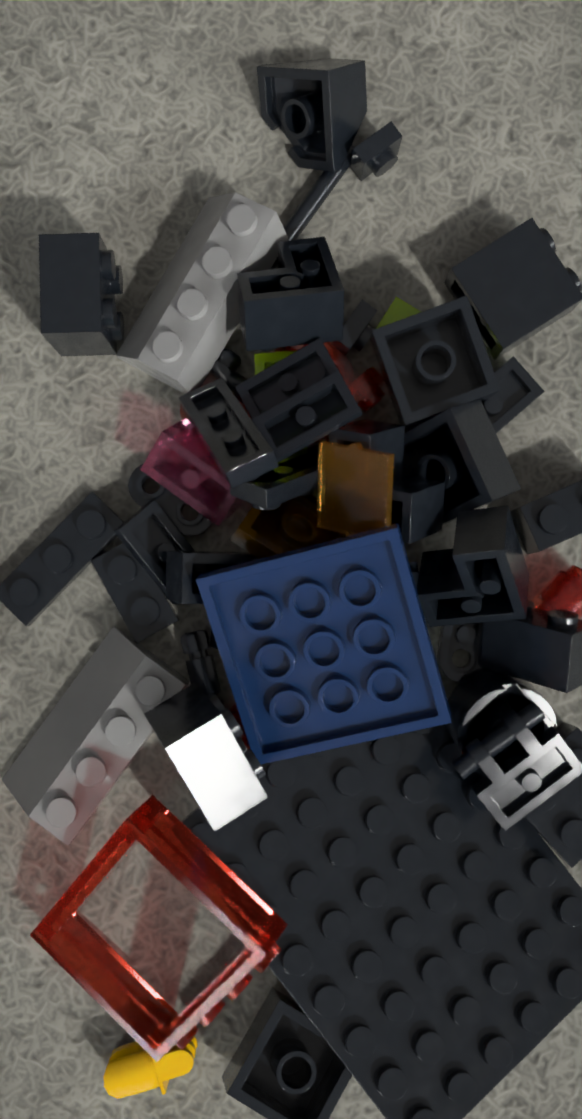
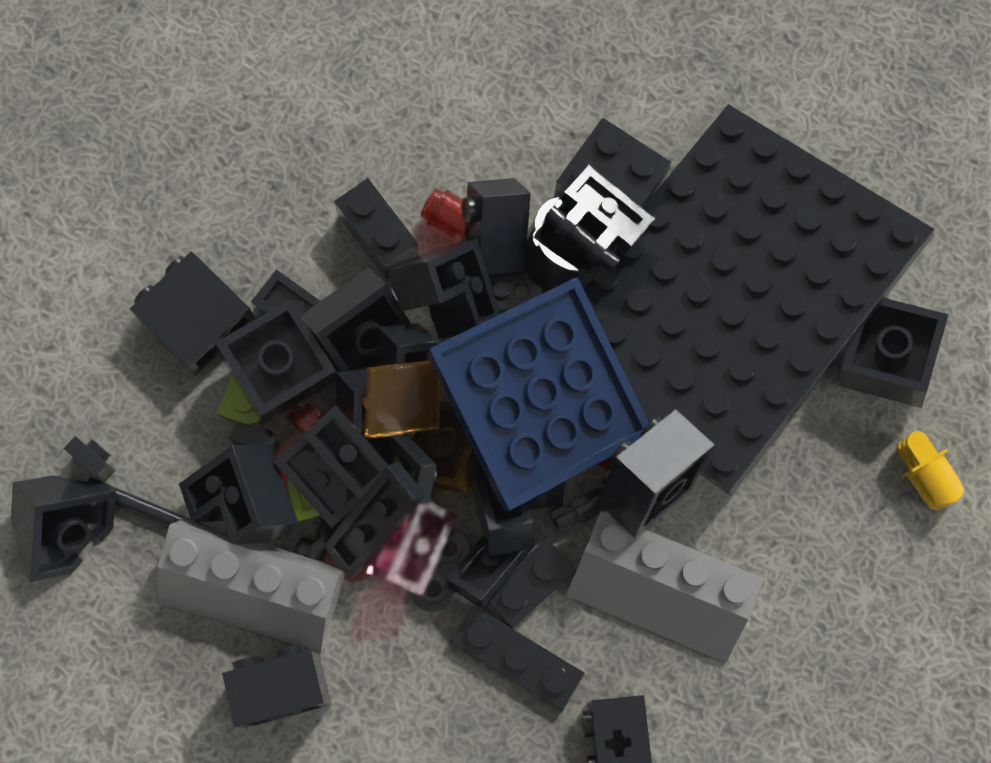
camera: 100 degrees left, 10 degrees down
(112, 979) = (871, 512): clear red window -> none

